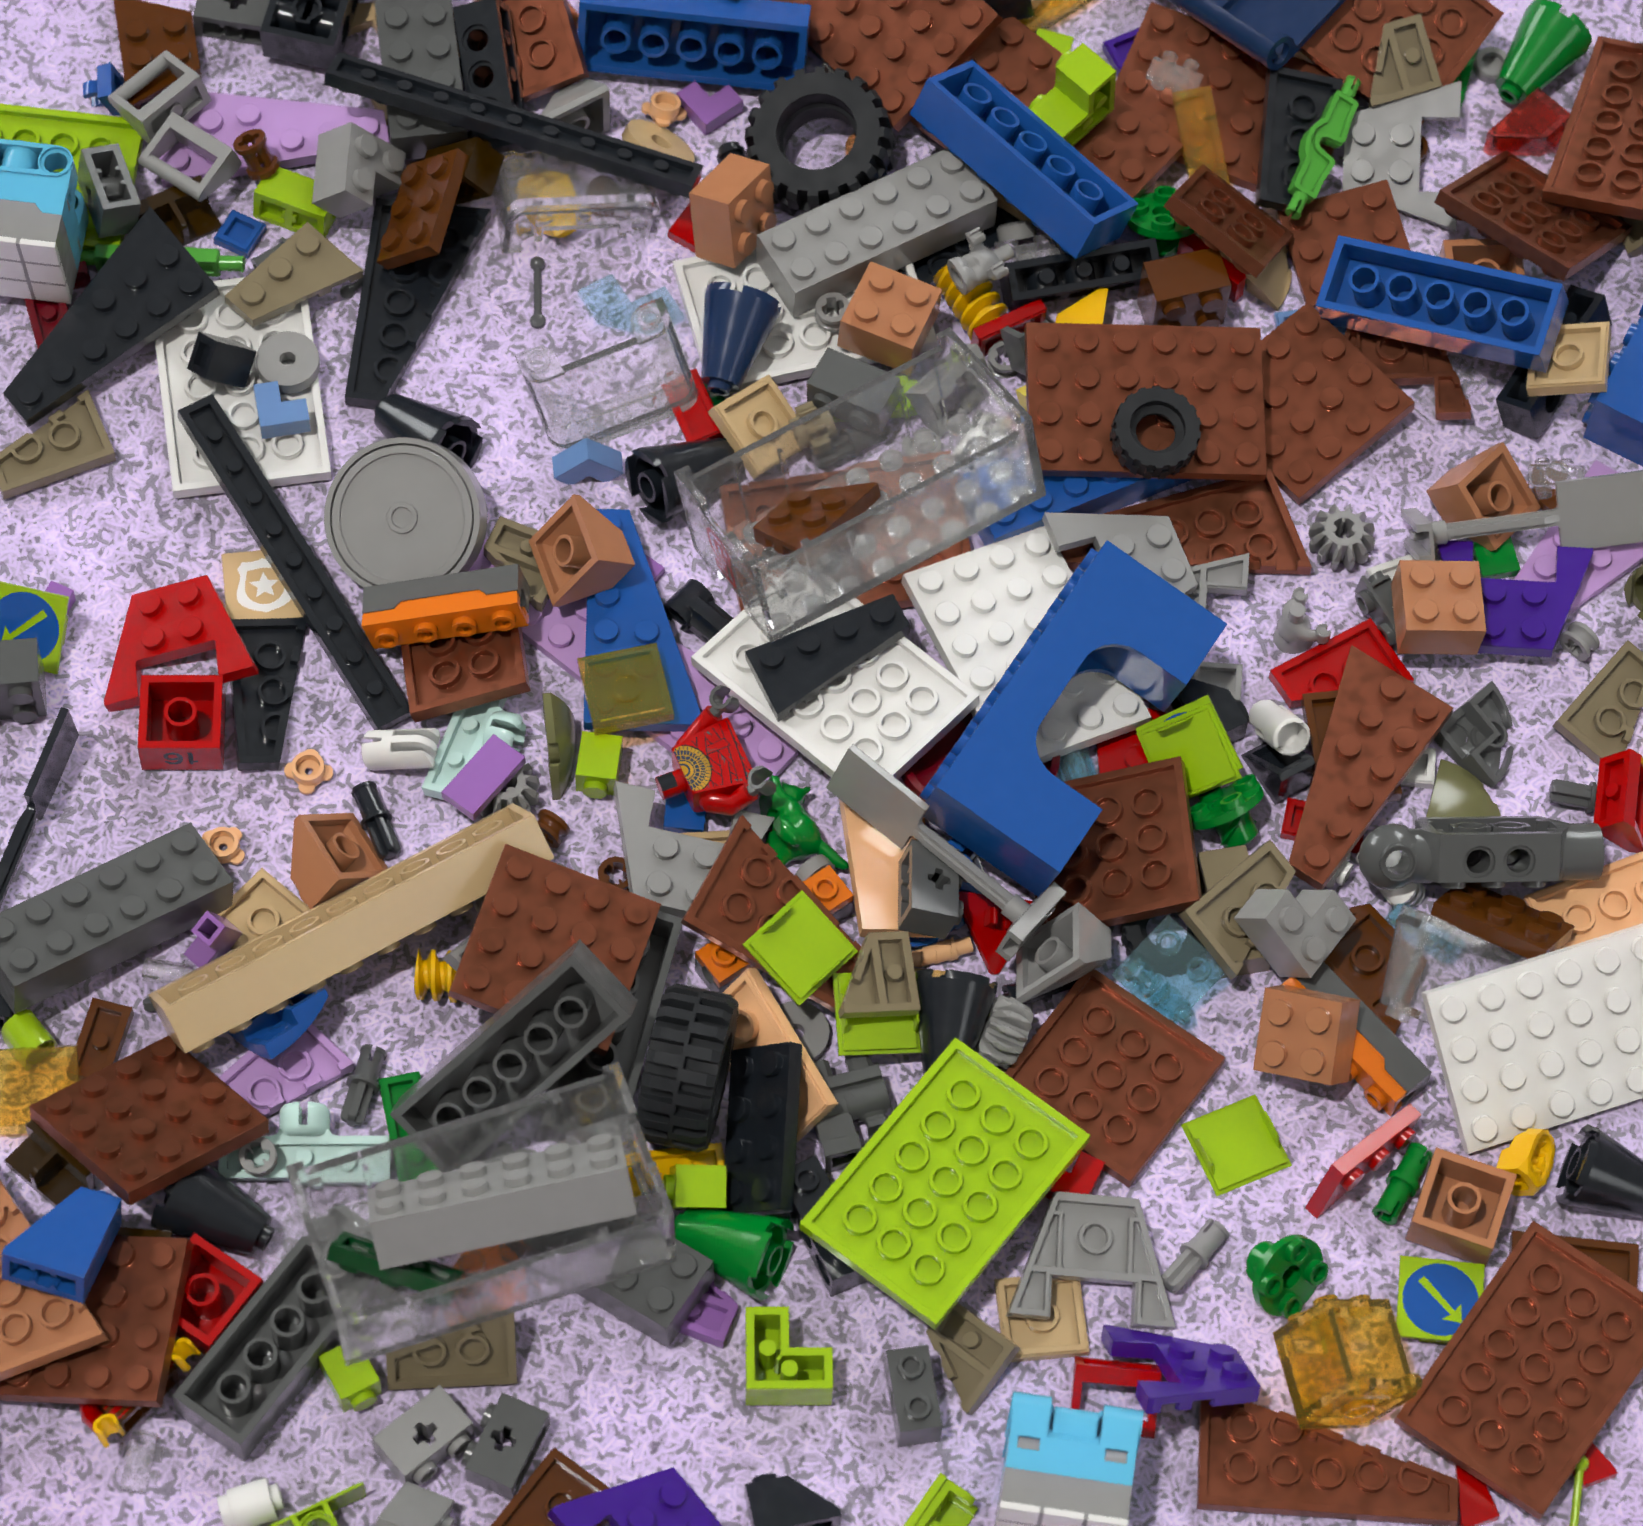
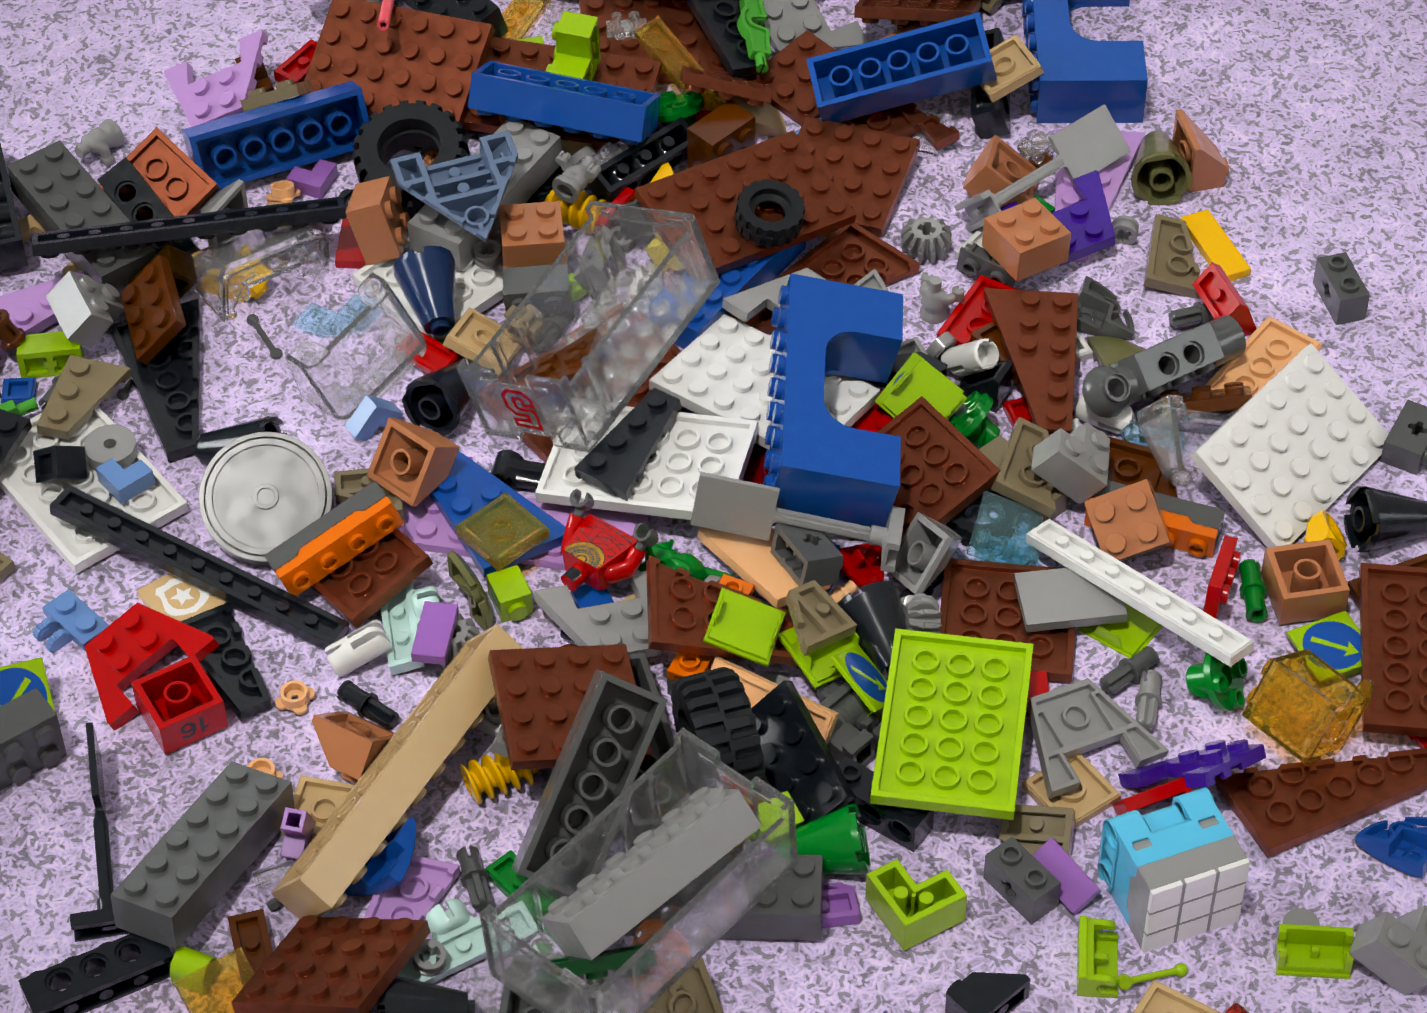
camera: 25 degrees left, 15 degrees down
(141, 555) = (71, 619): none -> medium blue hinge
(829, 225) = (463, 188): none -> sand blue wedge
(890, 1070) = (862, 677): none -> piece
(961, 1414) = (1076, 886): none -> medium lavender tile
(1188, 1088) = (1064, 600): none -> light grey tile
(1197, 1208) = (1129, 670): none -> dark grey axle
(1257, 1129) = (1140, 592): none -> white tile
(1262, 691) = (940, 345): none -> light grey tile

